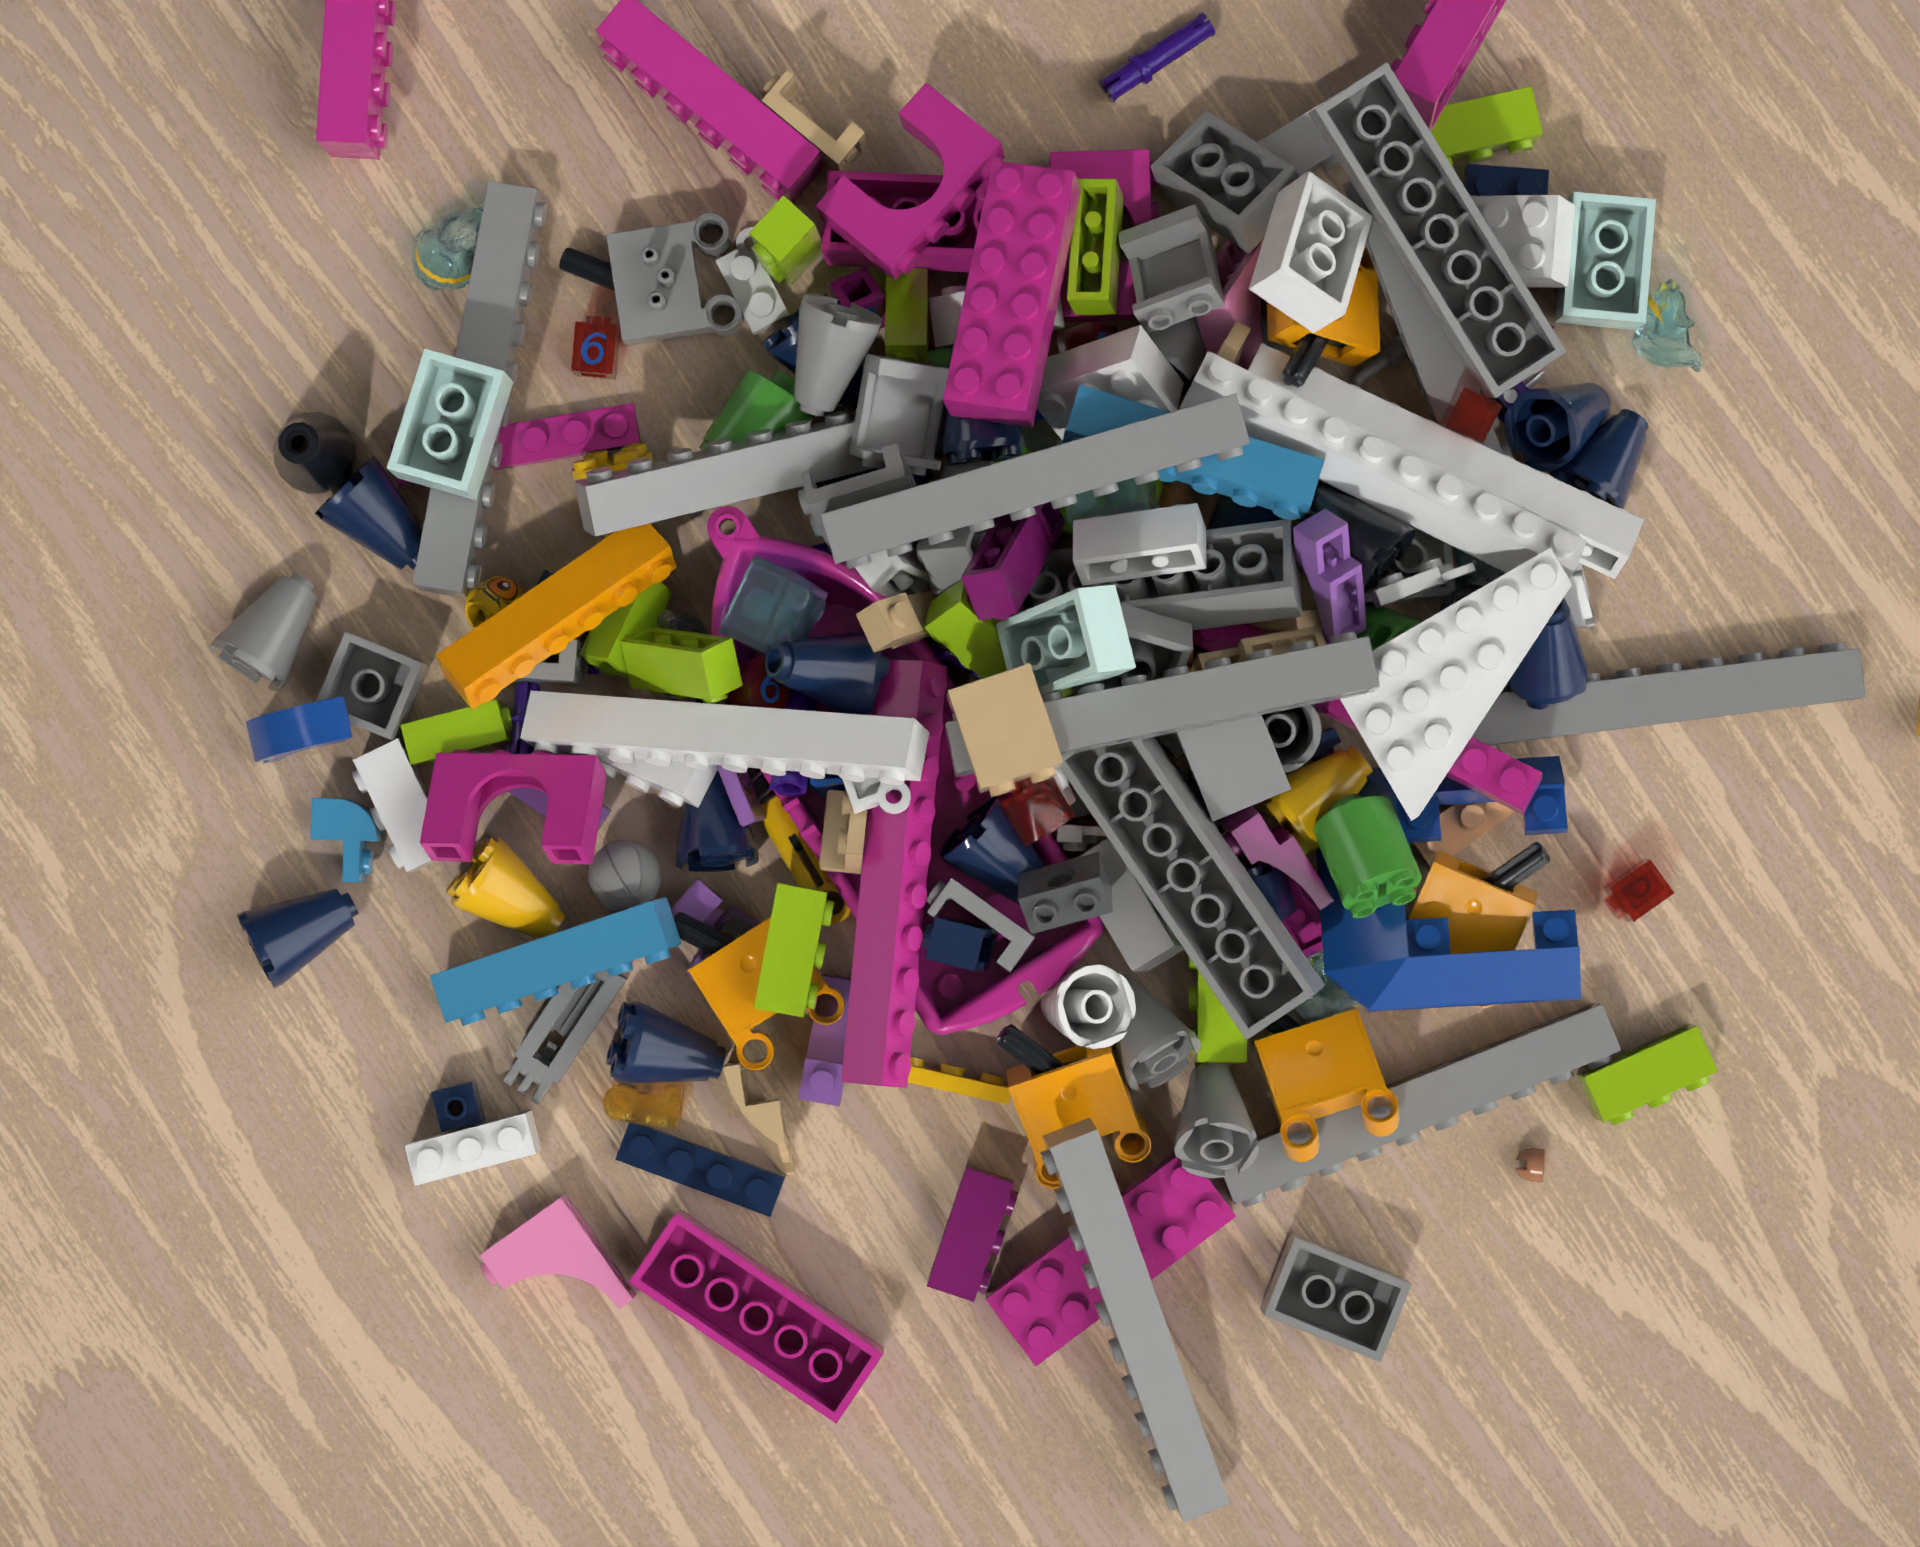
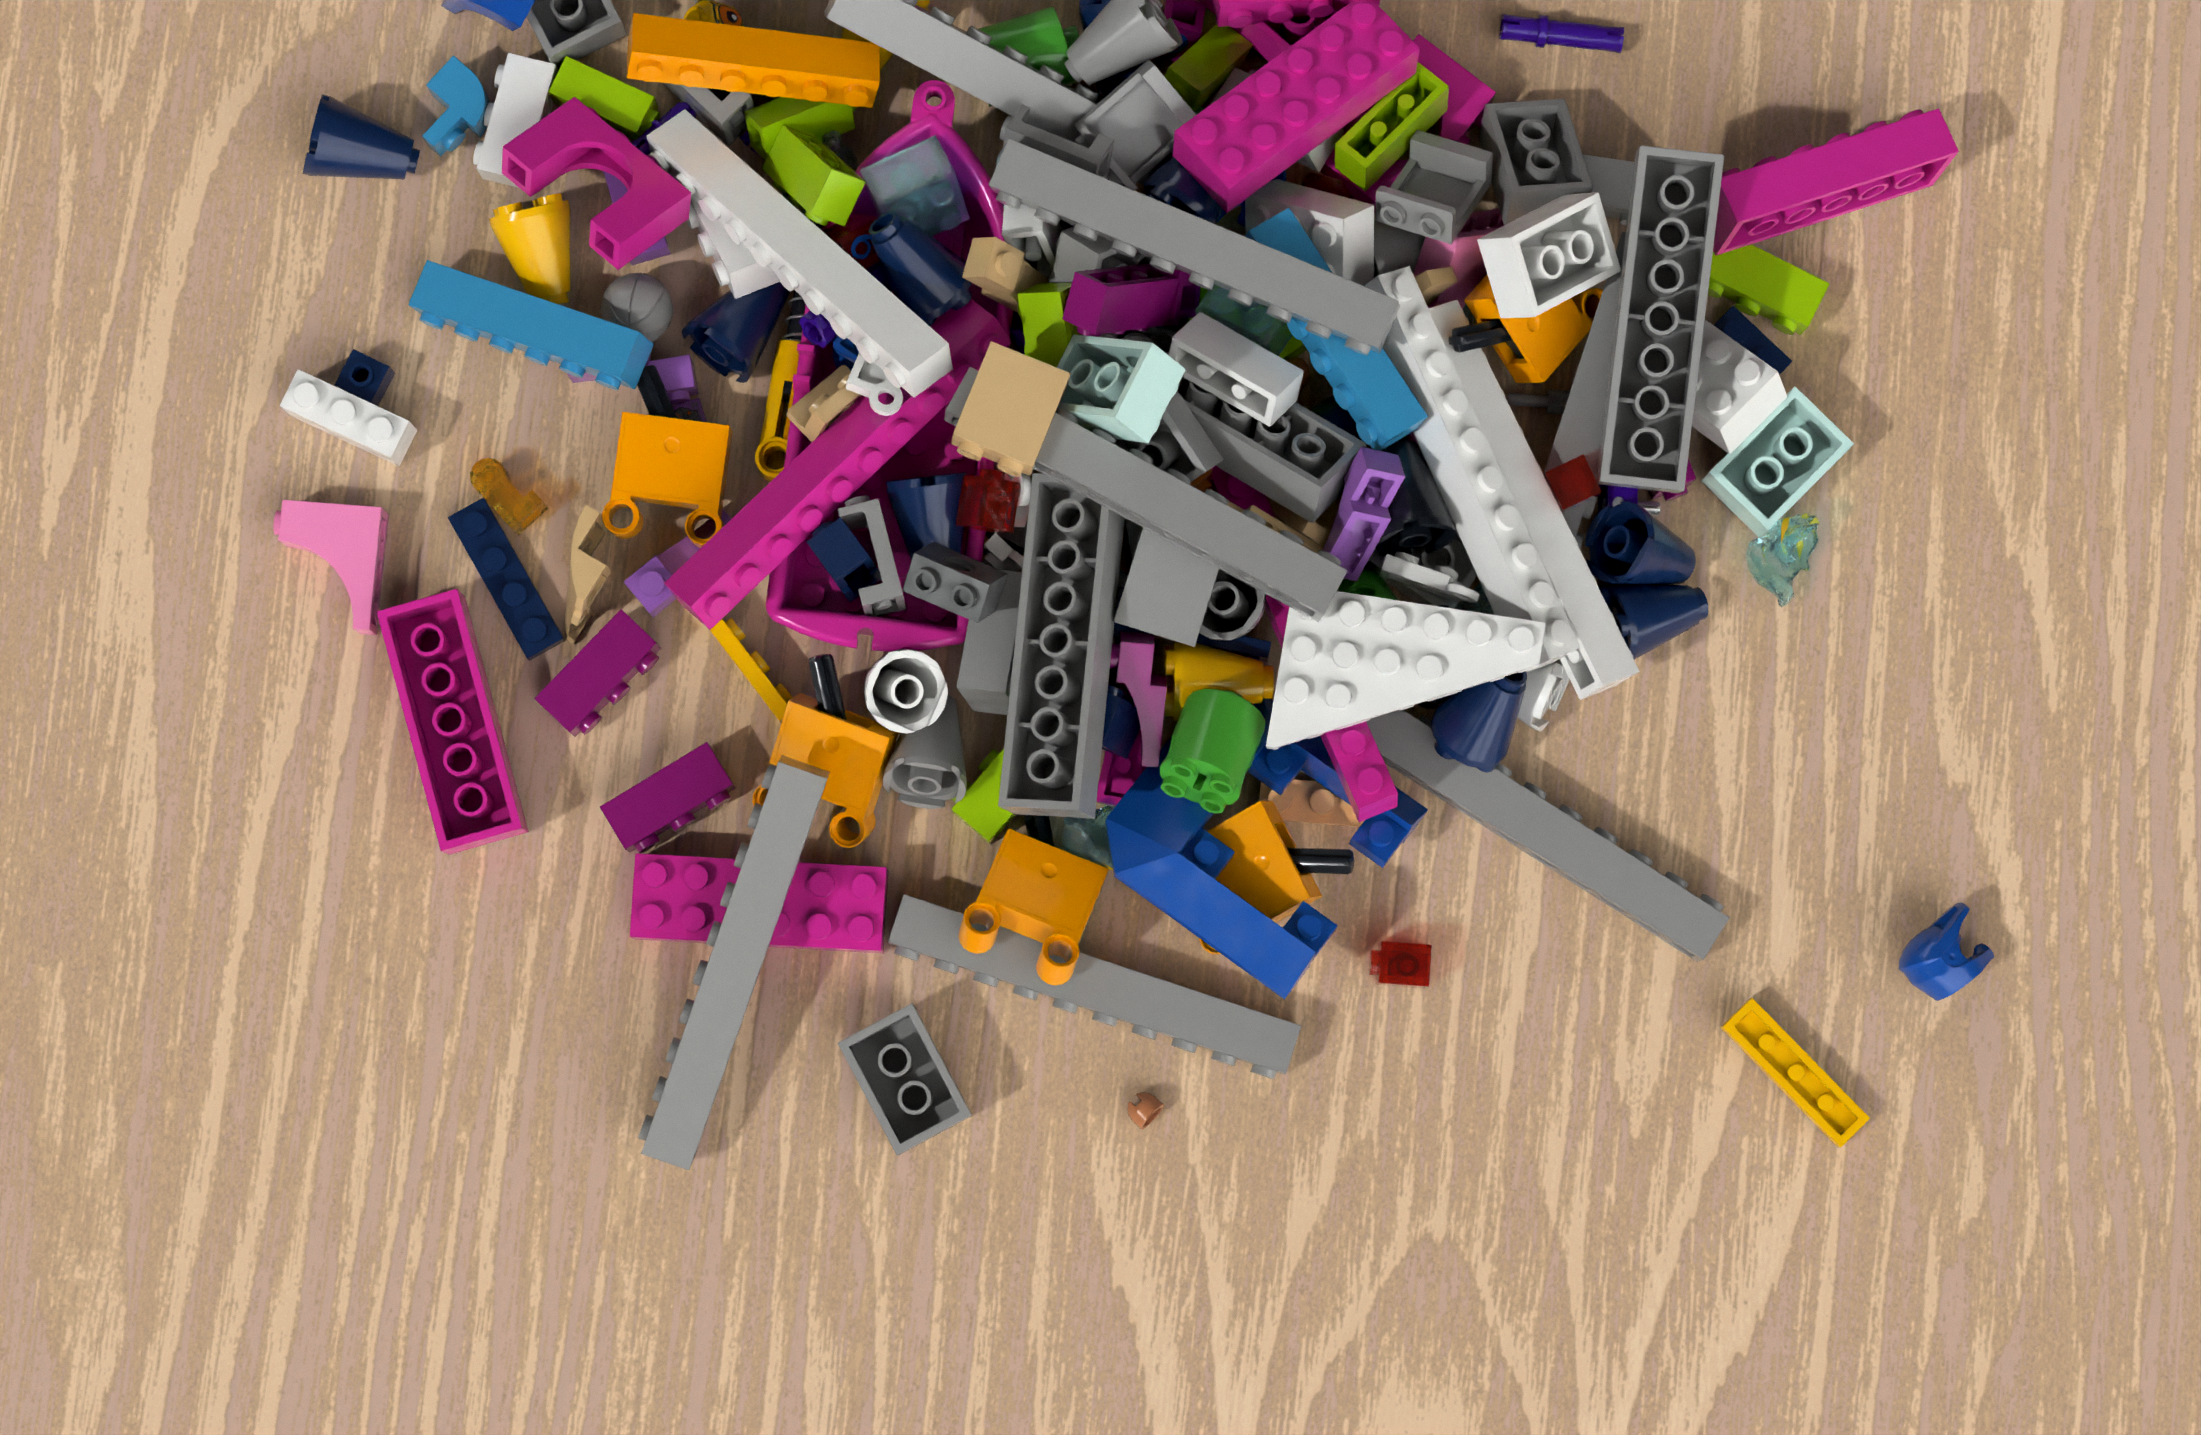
camera: 35 degrees right, 5 degrees down
(571, 1014) = (512, 385): light grey hinge -> none
(660, 1049) = (553, 461): dark blue cone -> none
(742, 796) = (777, 316): medium lavender tile -> none
(793, 950) = (714, 458): lime brick -> none
(837, 1183) = (599, 674): none -> magenta brick
(1214, 1124) = (921, 865): light grey cone -> none
(1648, 1075) = (1292, 1114): lime brick -> none

